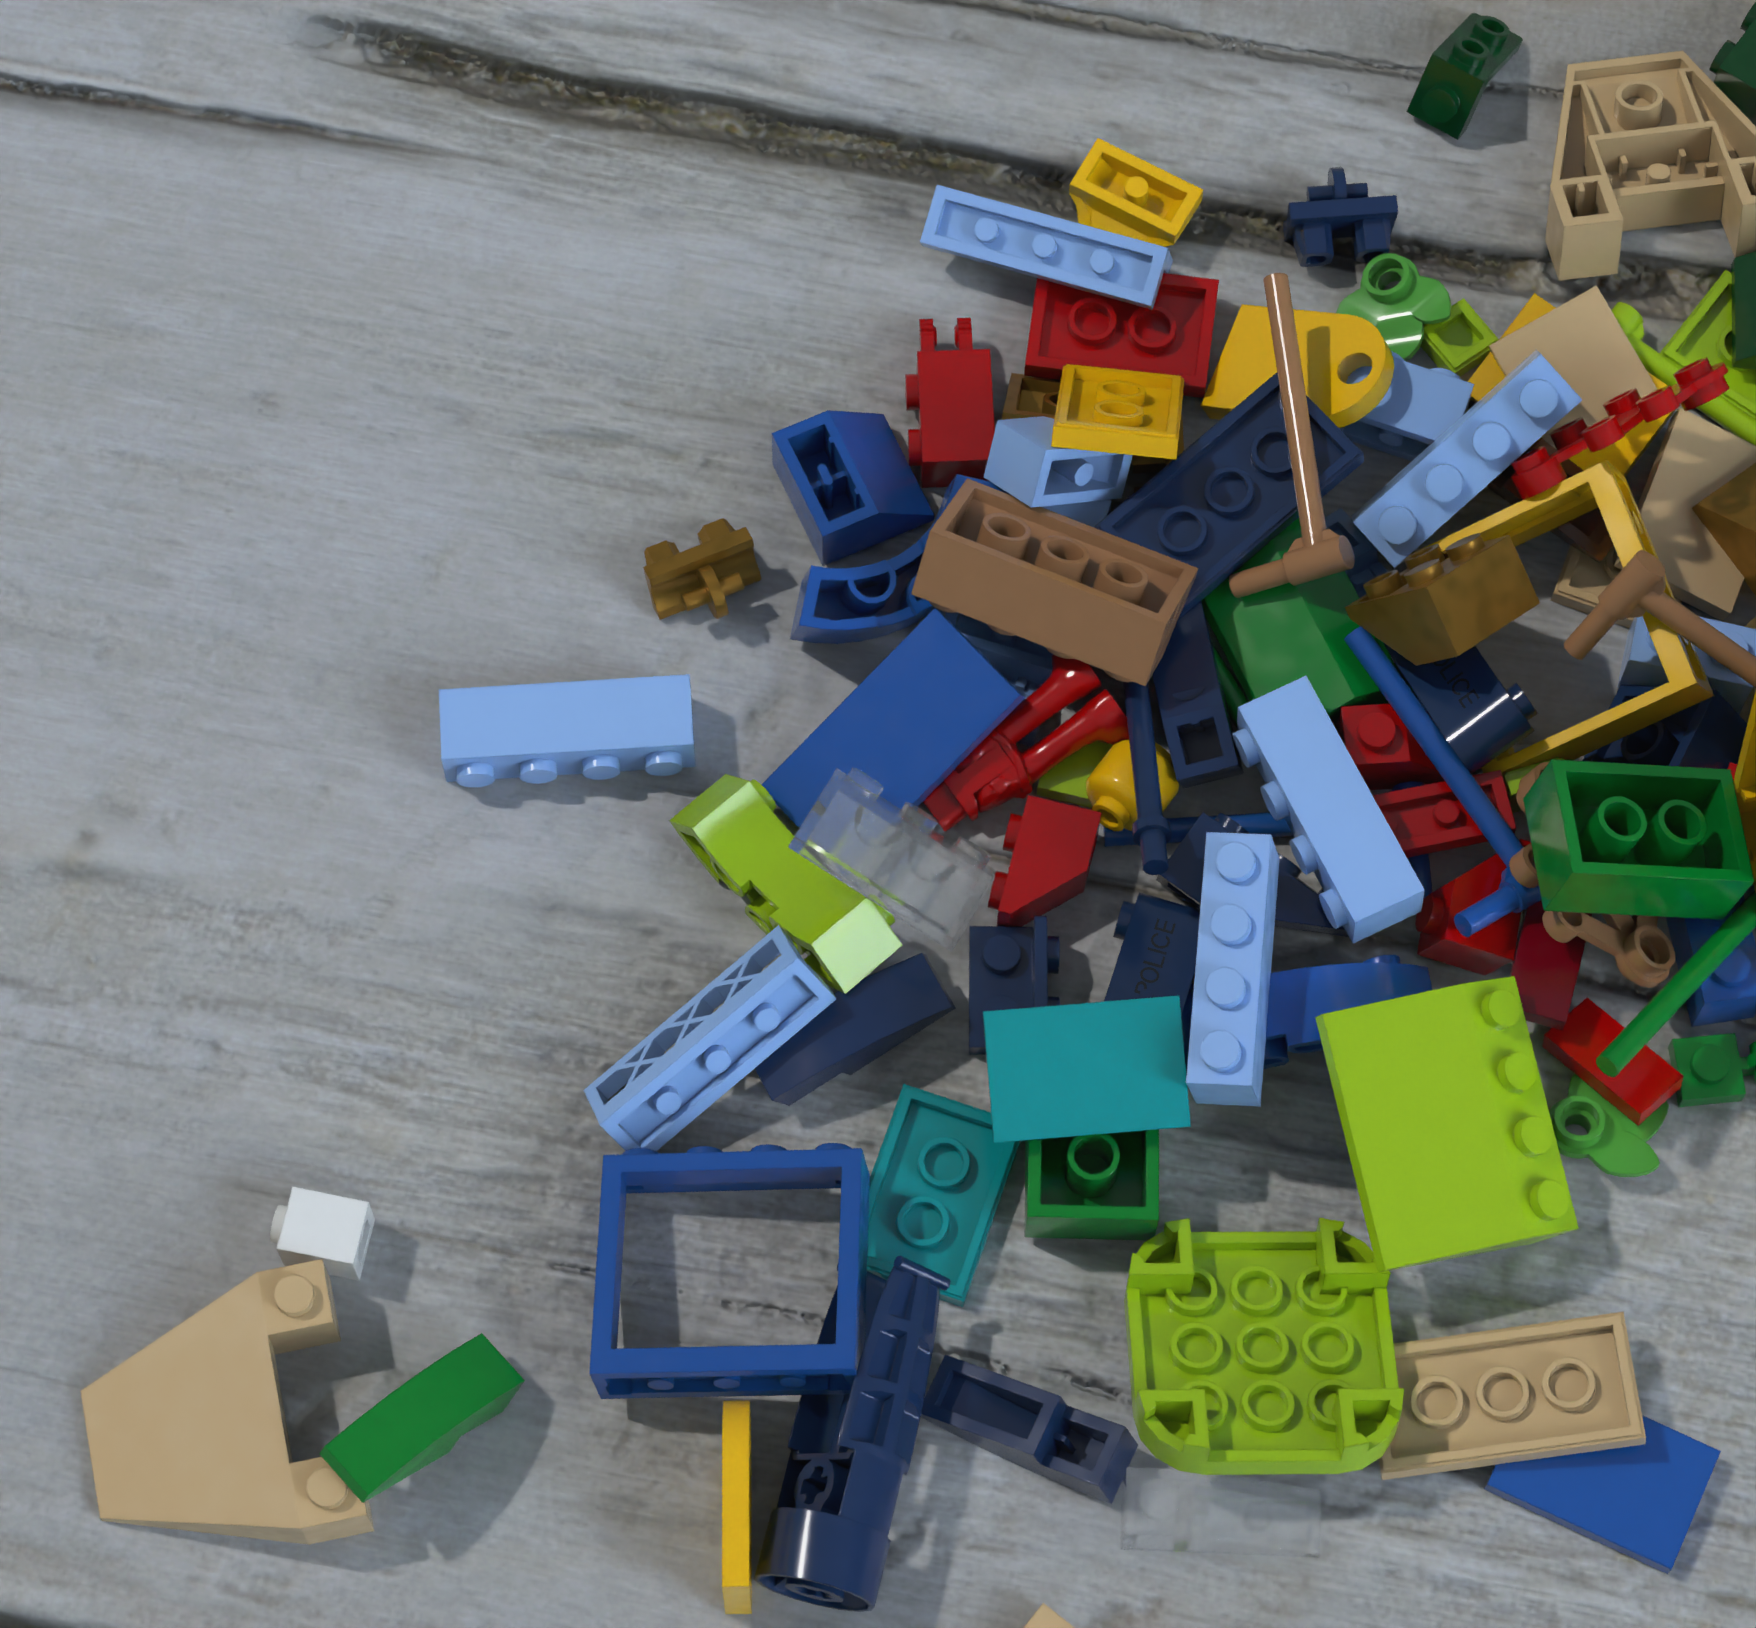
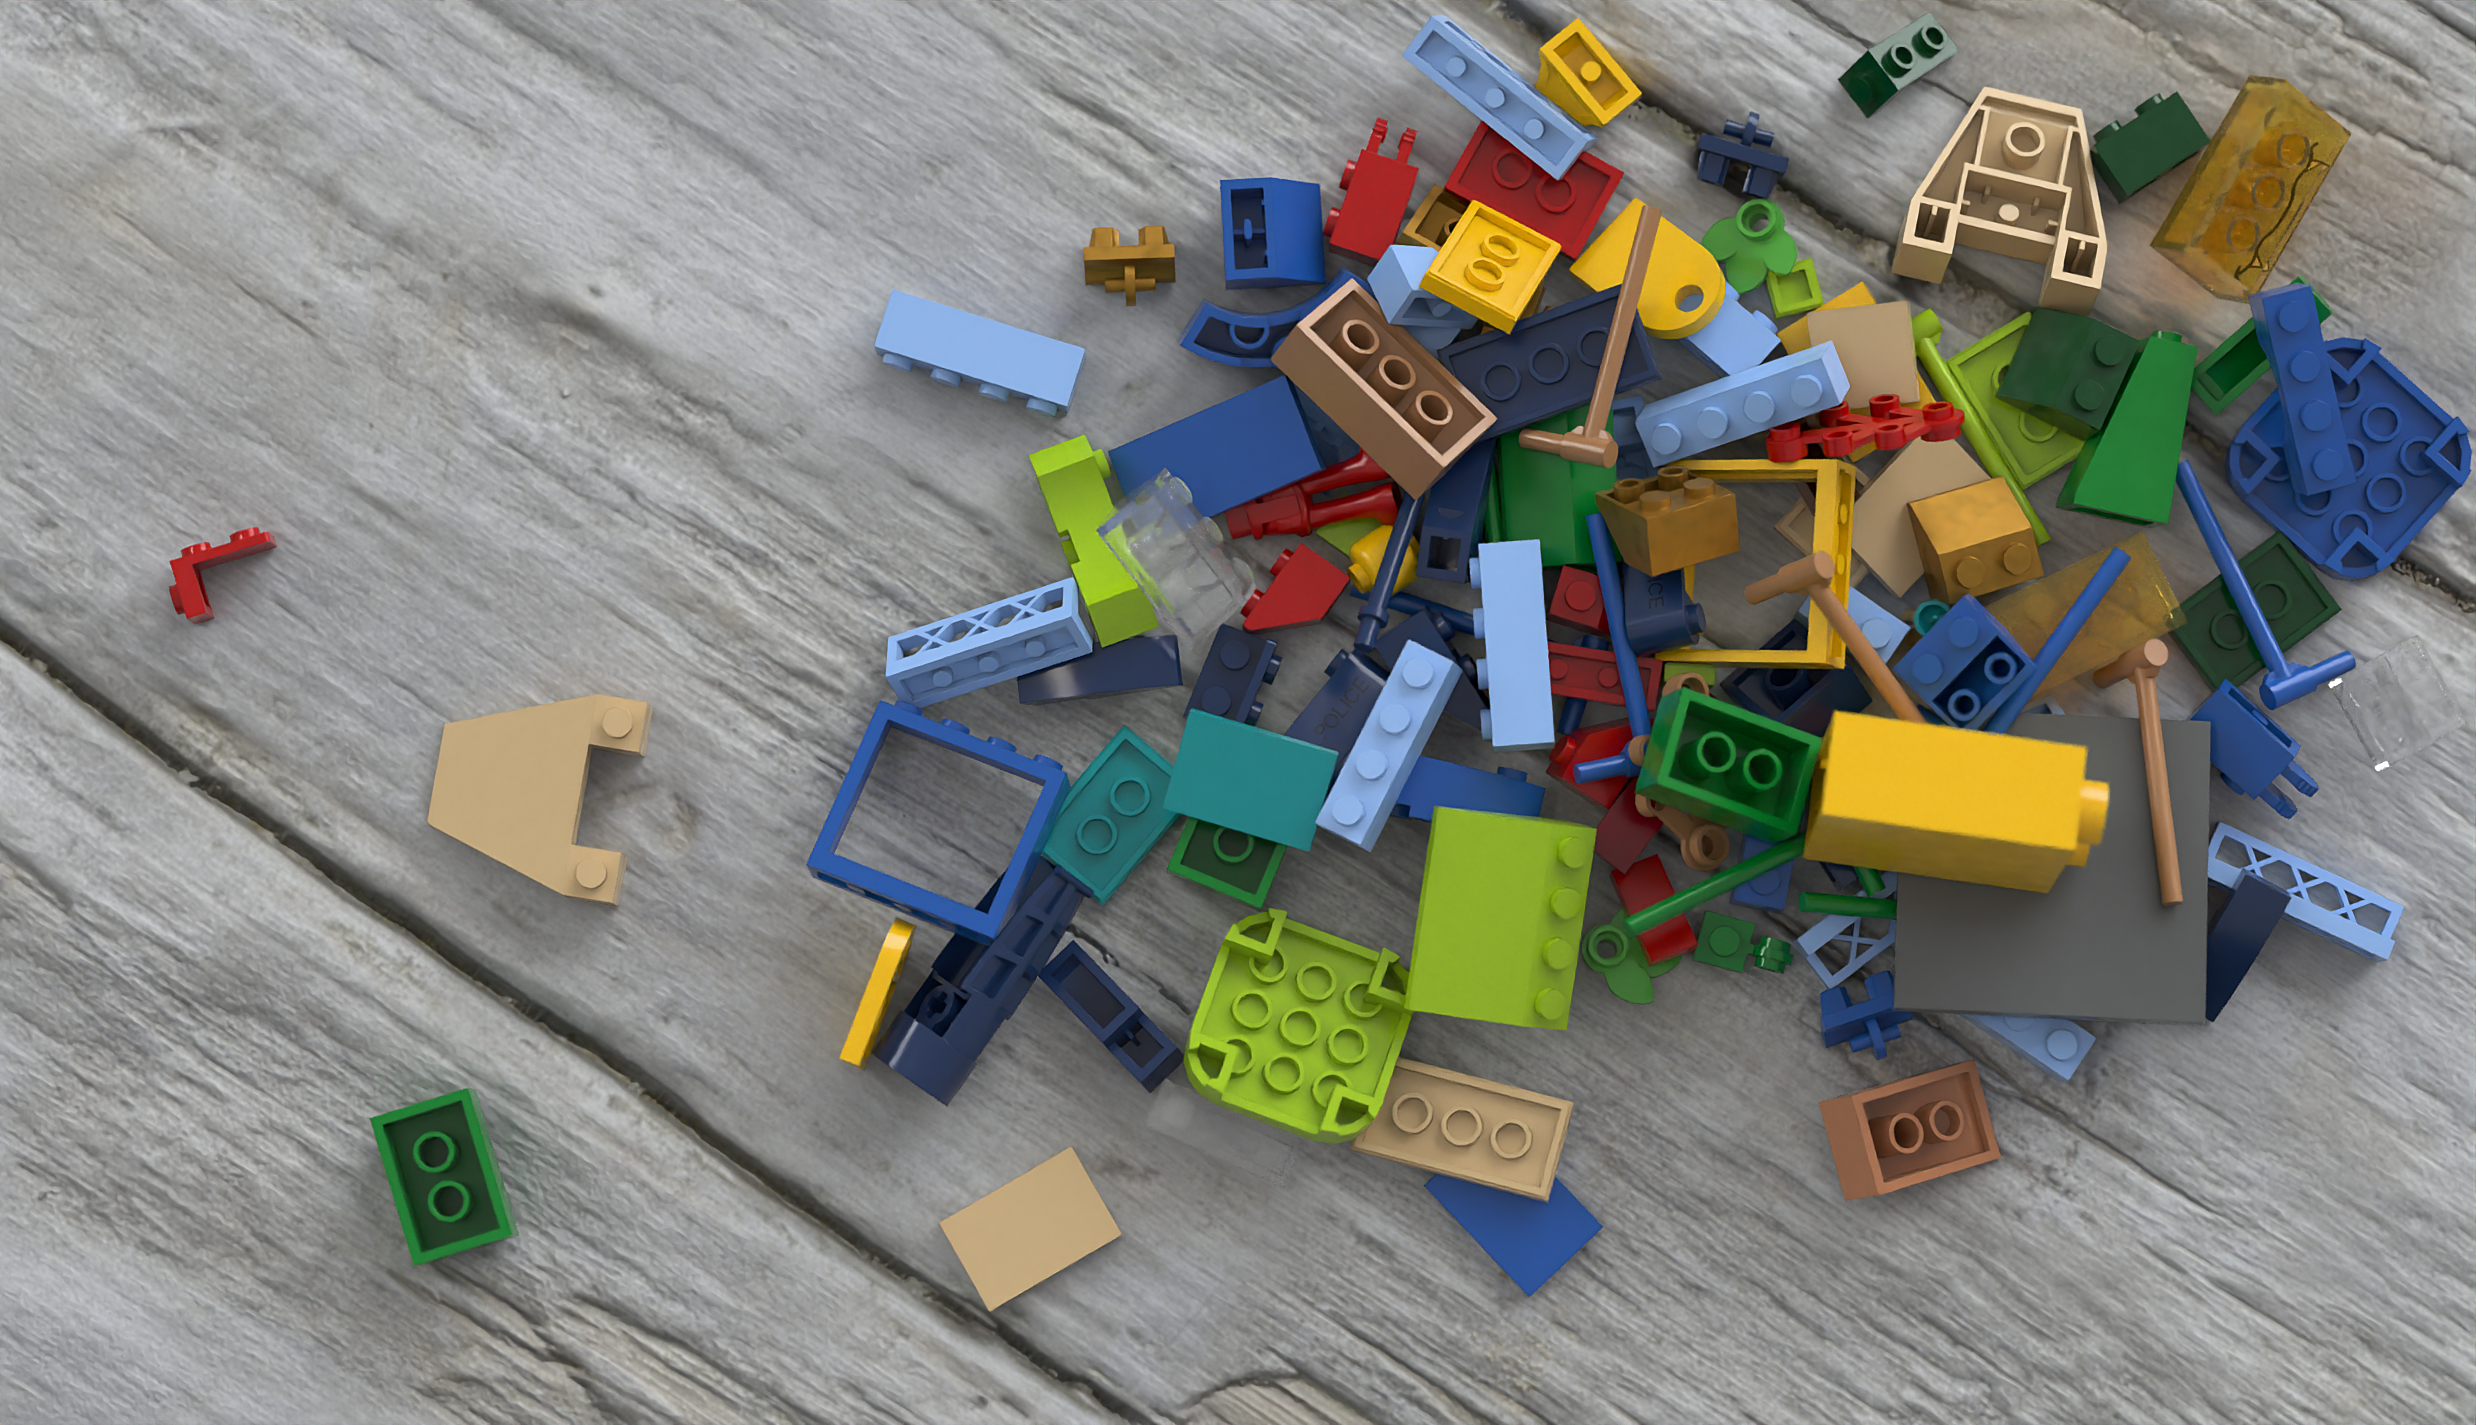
camera: 20 degrees right, 15 degrees up
(323, 1228) = (657, 675): white brick -> none
(423, 1418) = (678, 846): green slope -> none

